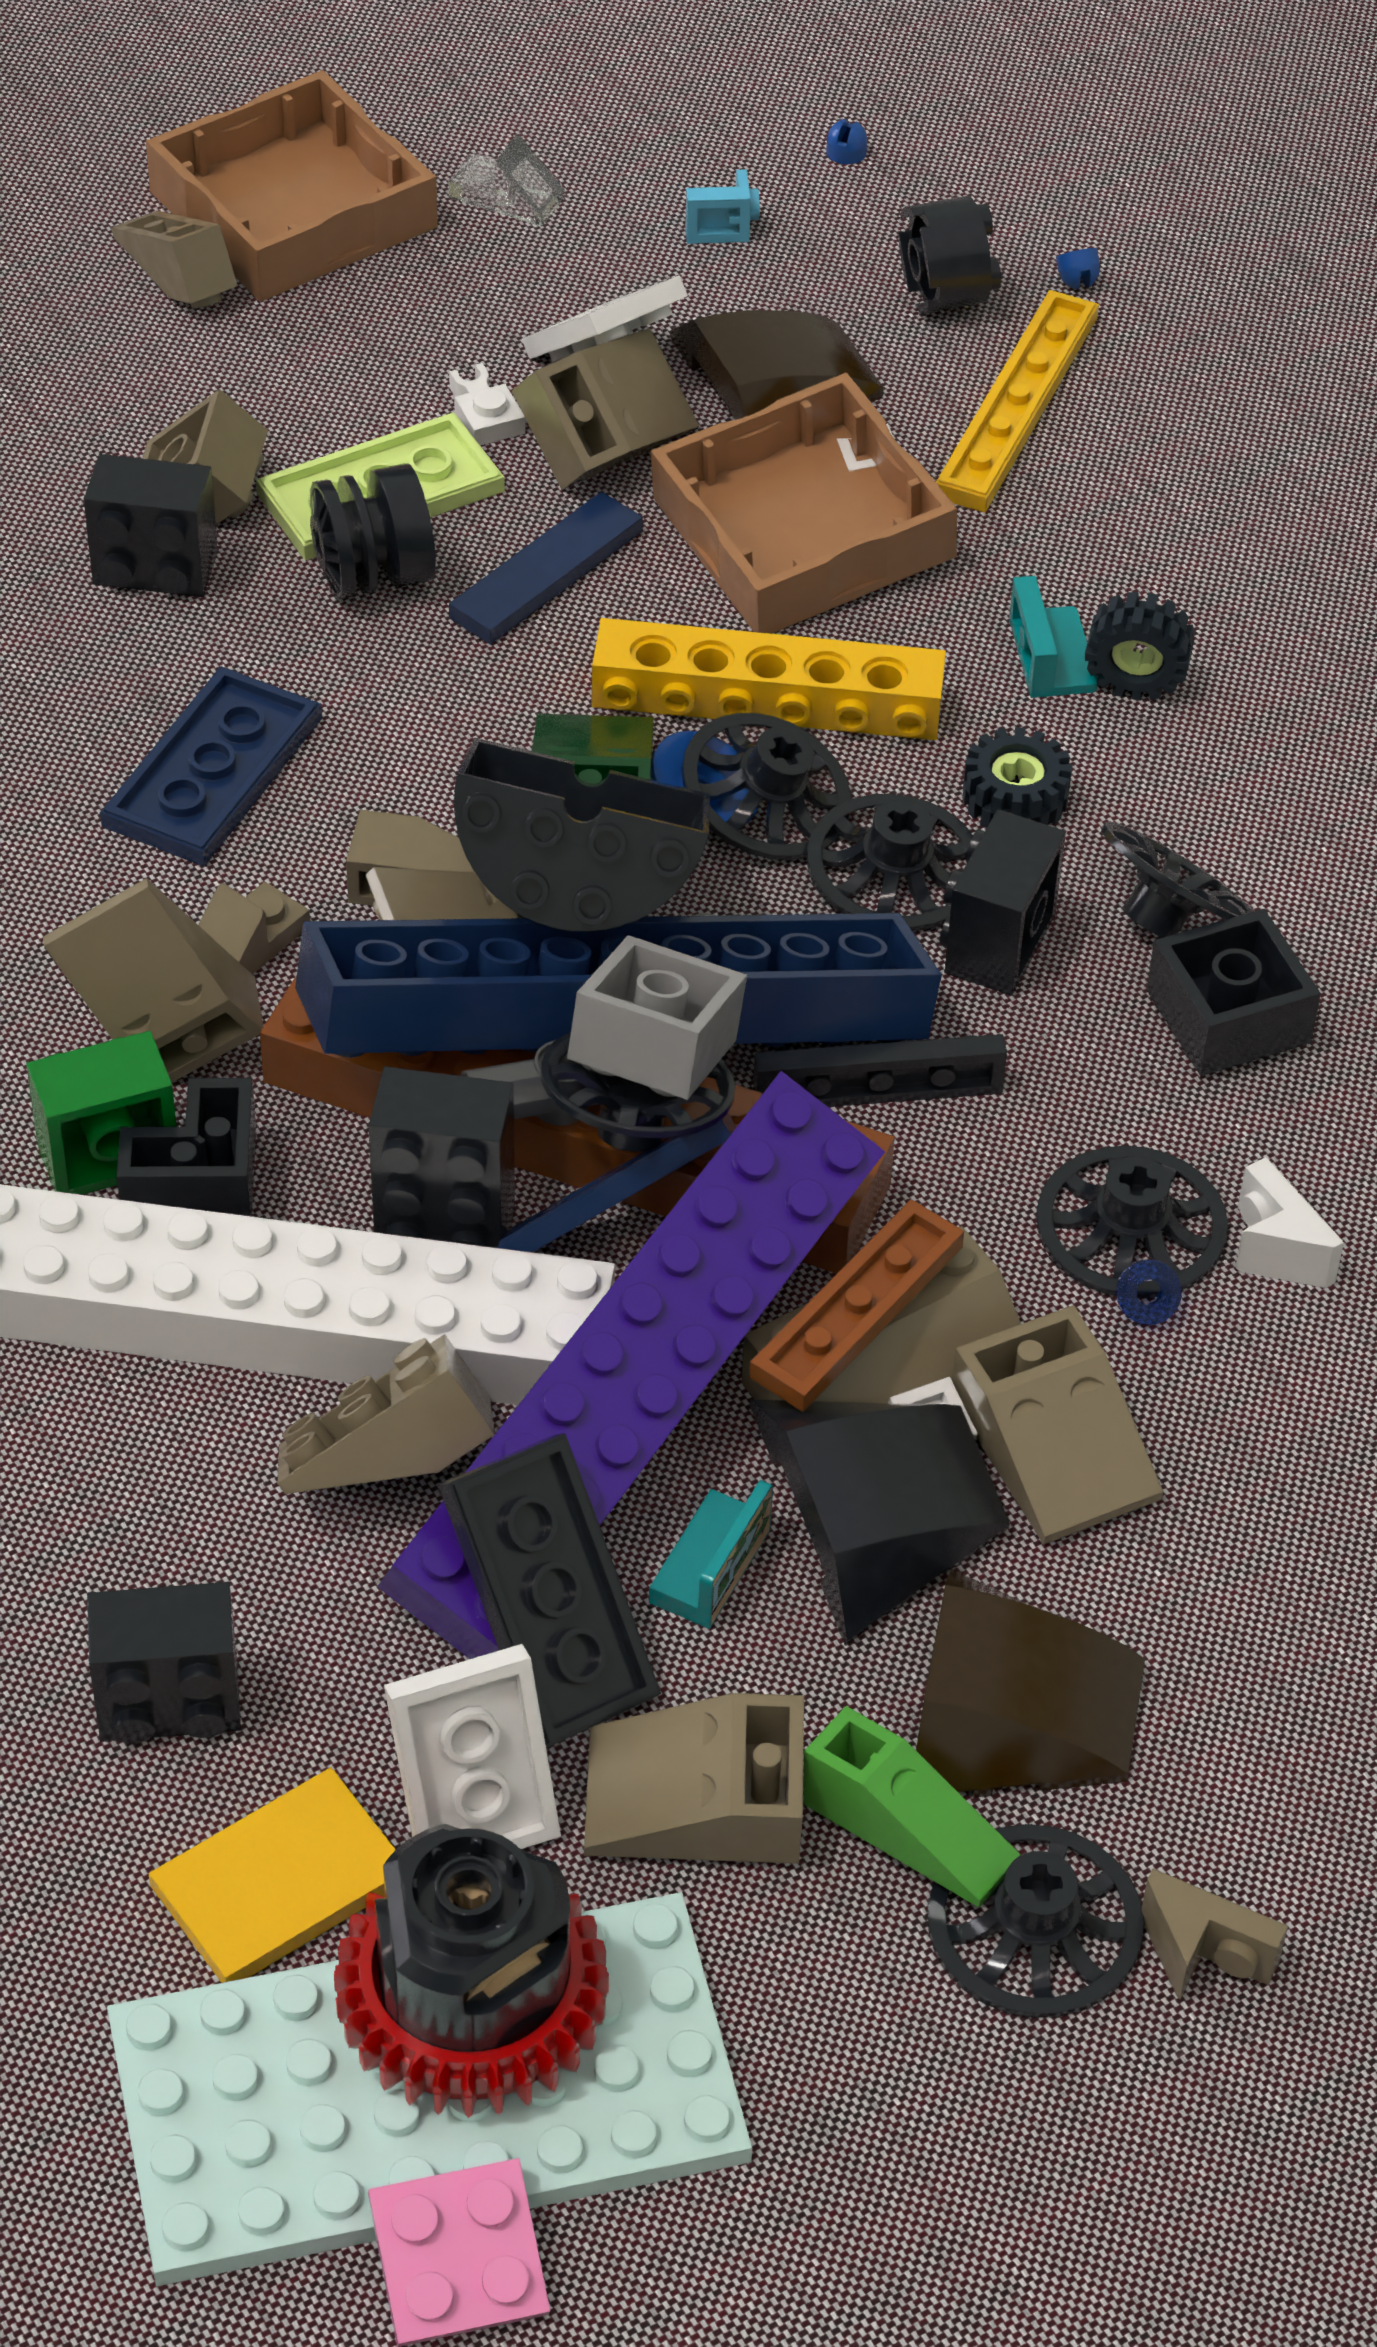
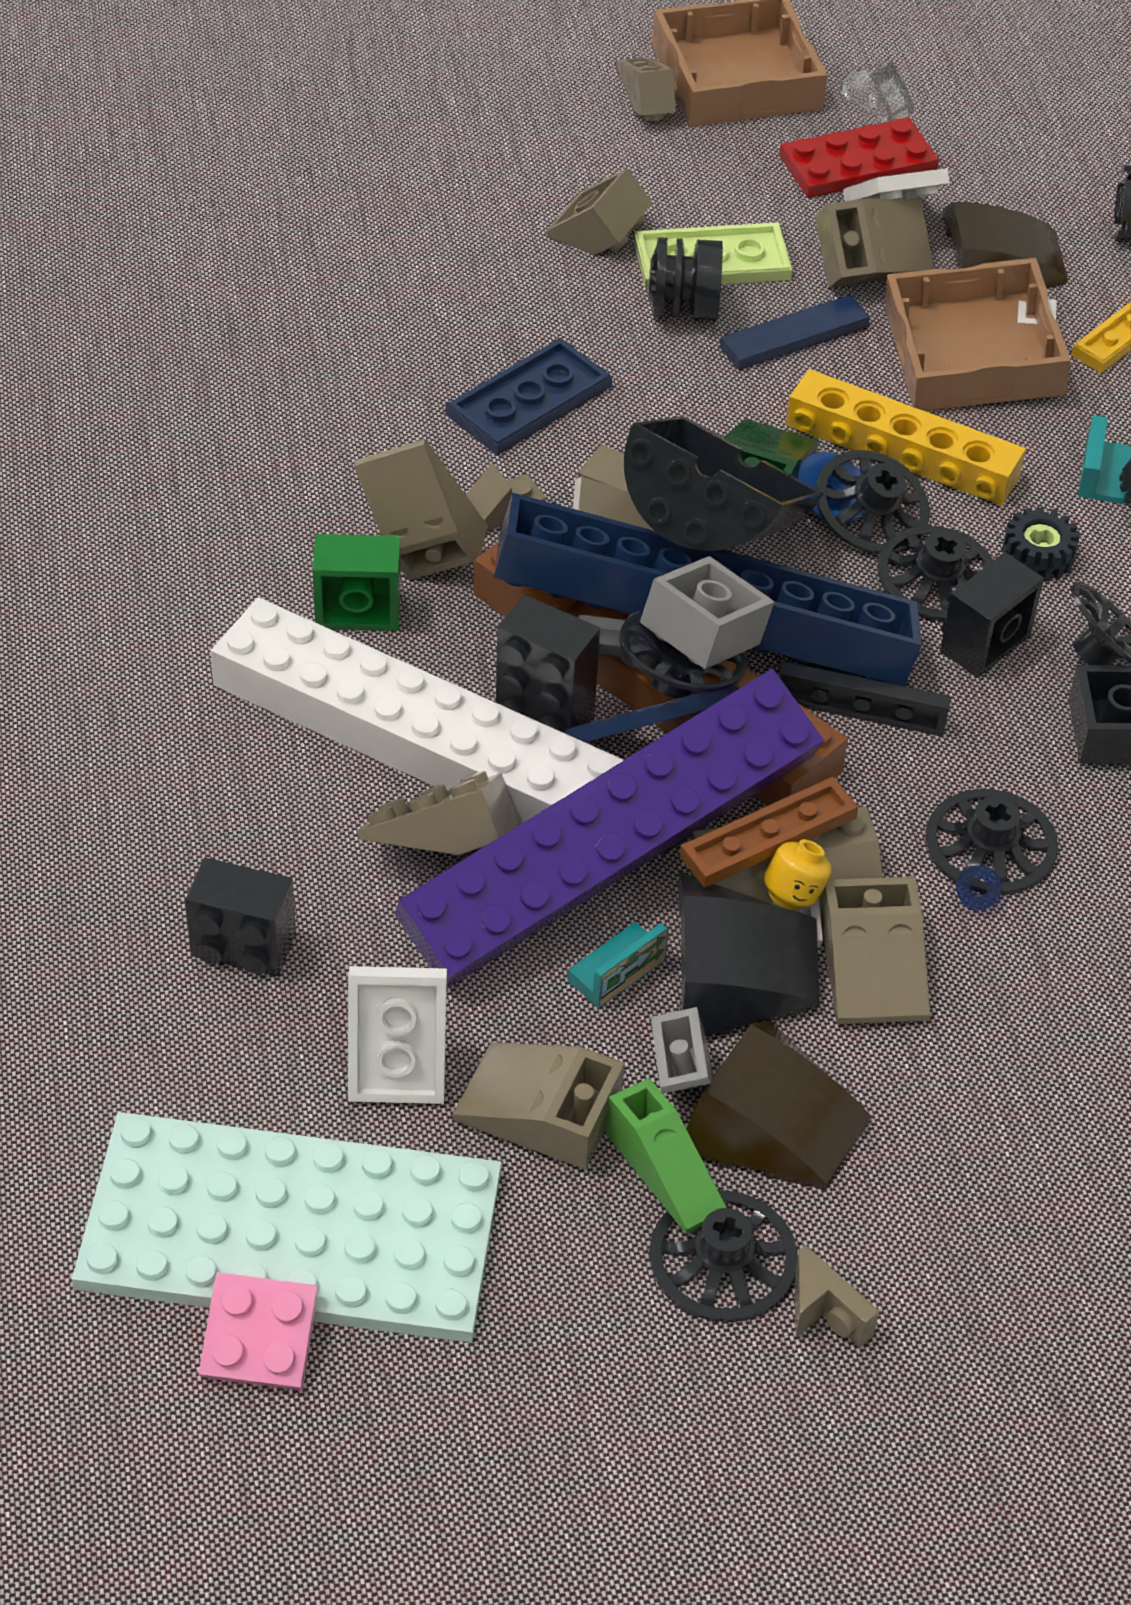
camera: 20 degrees right, 0 degrees up
(151, 525) = (551, 240): black brick -> none
(200, 1164) = (407, 628): black brick -> none
(275, 1877) = (259, 1071): yellow tile -> none
(470, 1971) = (336, 1161): piece -> none
(485, 410) = (799, 225): white plate -> none
(520, 286) = (856, 156): none -> red plate
(551, 1584) = (492, 947): black tile -> none
(721, 212) = (1008, 143): medium azure bracket -> none
(856, 146) = (1113, 120): blue hinge -> none
(868, 1654) = (681, 1050): none -> light grey slope
(919, 1352) = (797, 874): none -> yellow head
(1284, 1232) = (1086, 877): white slope -> none

